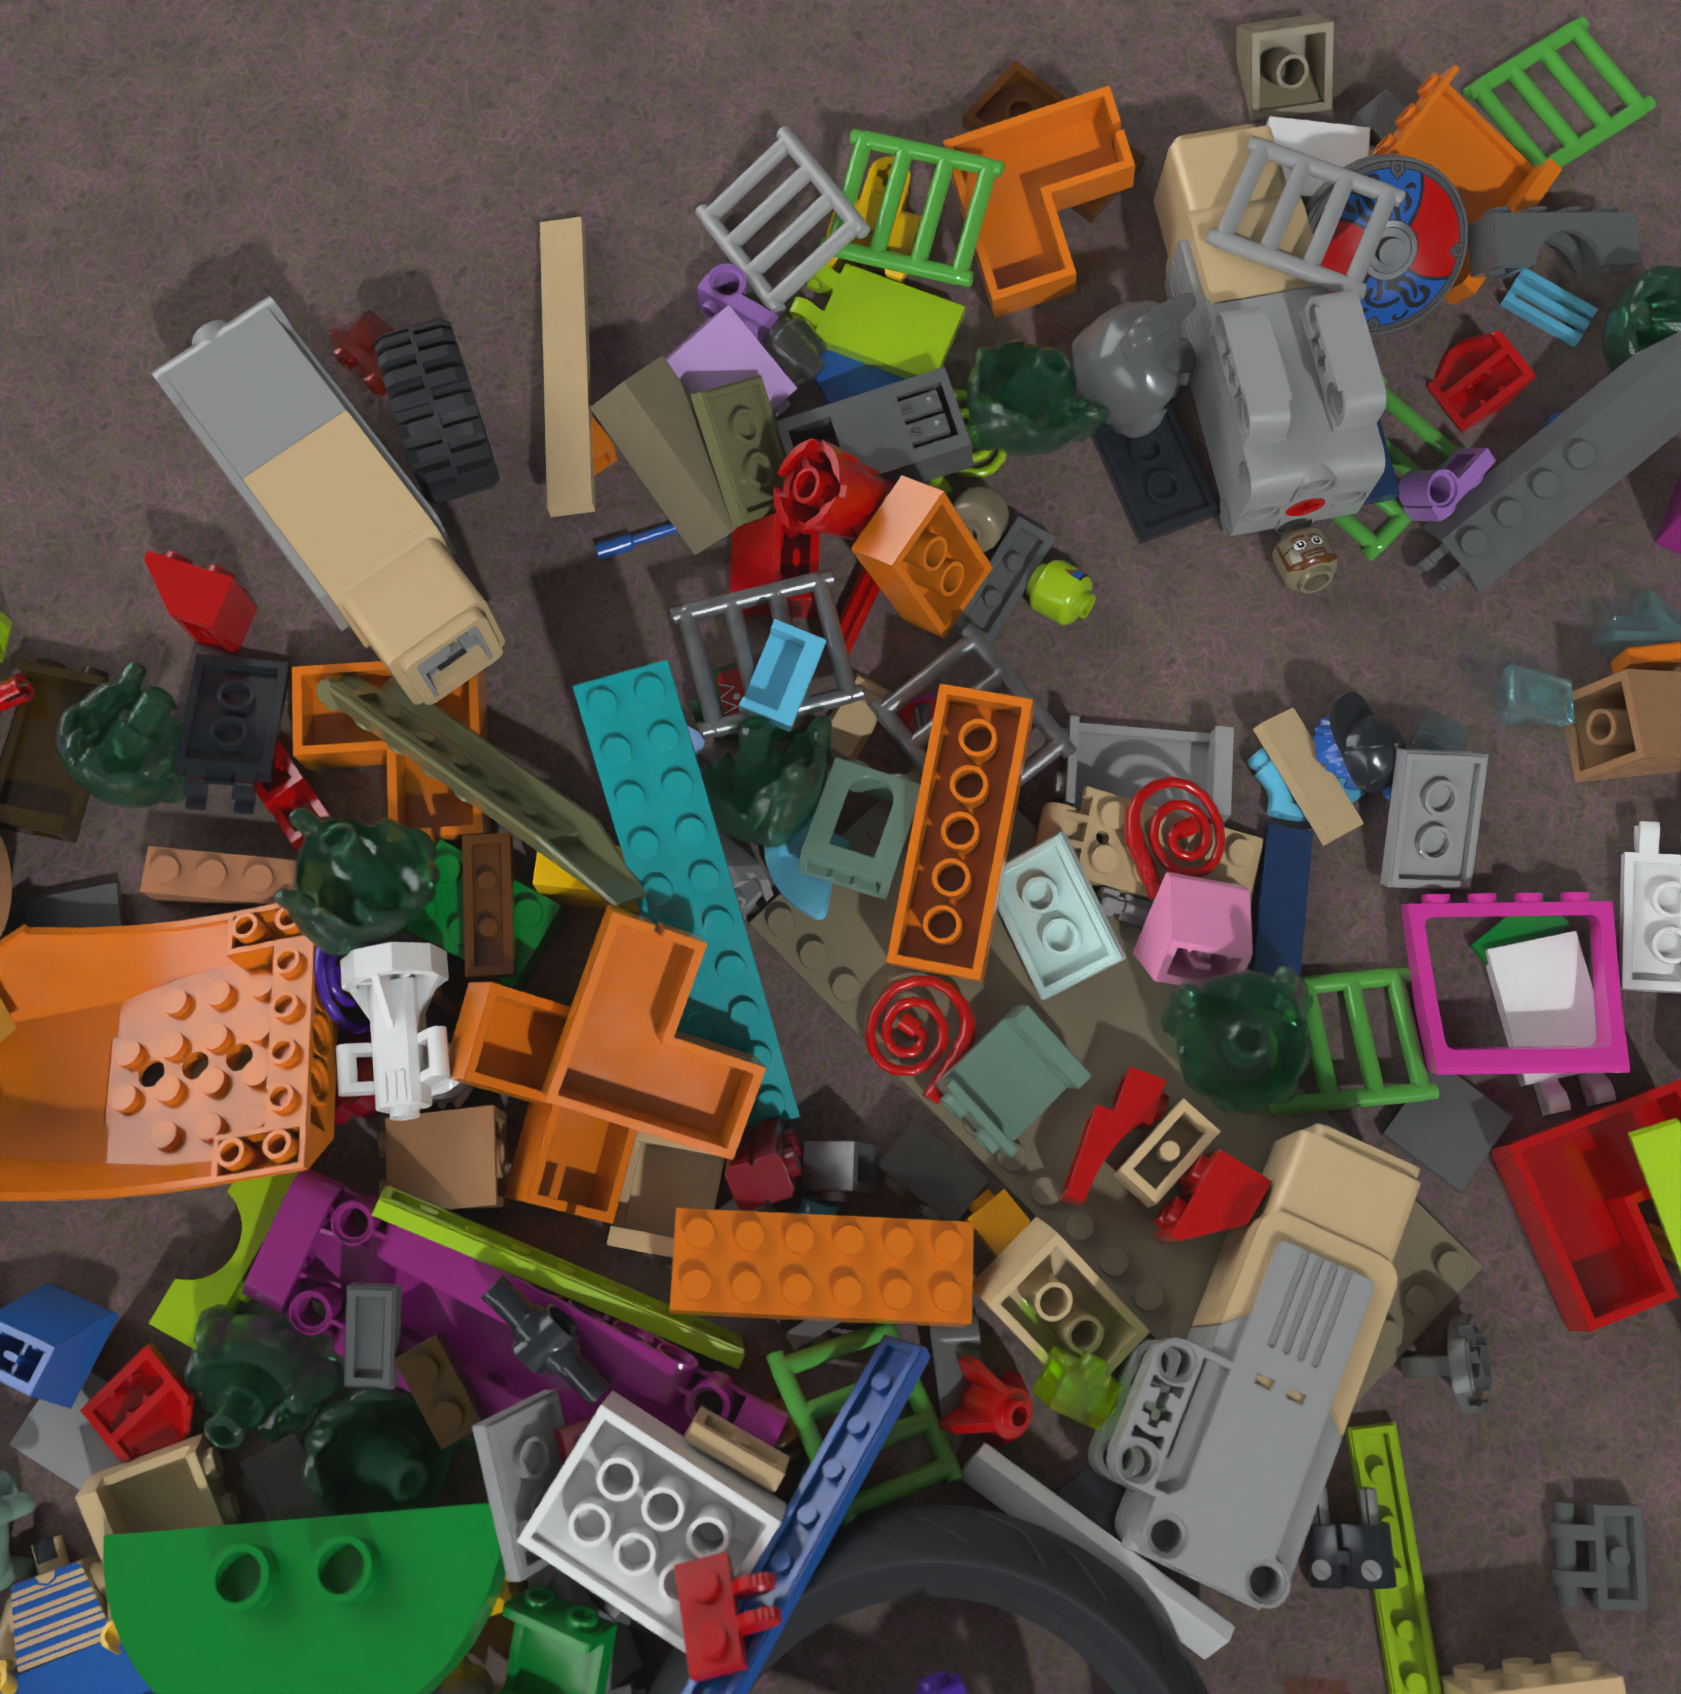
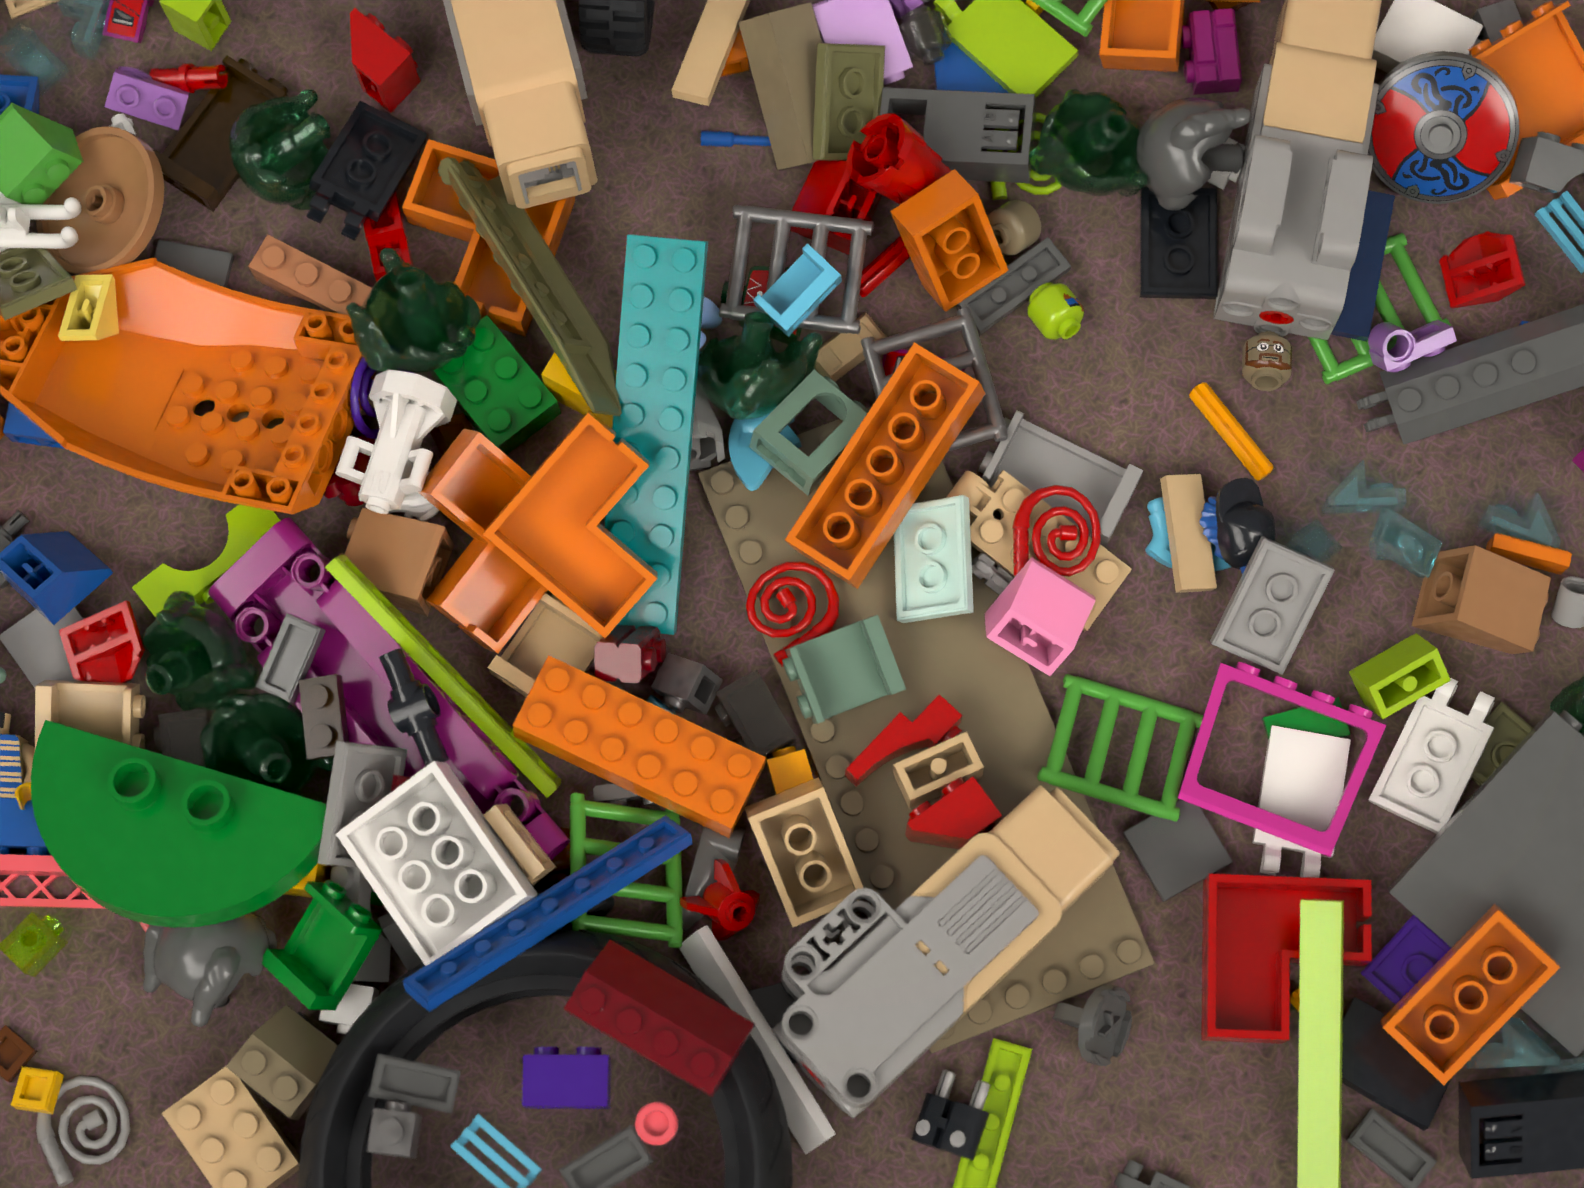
camera: 30 degrees right, 0 degrees up
(489, 906) = (502, 378): reddish brown plate -> none
(712, 1614) = (451, 935): red hinge -> none
(1005, 1609) = (659, 1017): none -> dark red slope
(1078, 1387) = (791, 908): clear neon green brick -> none
(1104, 258) = (1212, 52): none -> magenta brick
(1242, 1037) = (1035, 705): clear green piece -> none
(1282, 899) = (1117, 632): dark blue tile -> none
(1299, 649) = (1231, 431): none -> light orange axle
(1302, 167) = (1352, 125): light grey bar -> none
(1460, 664) = (1353, 496): none -> clear light blue slope
(1598, 841) = (1399, 675): none -> lime brick

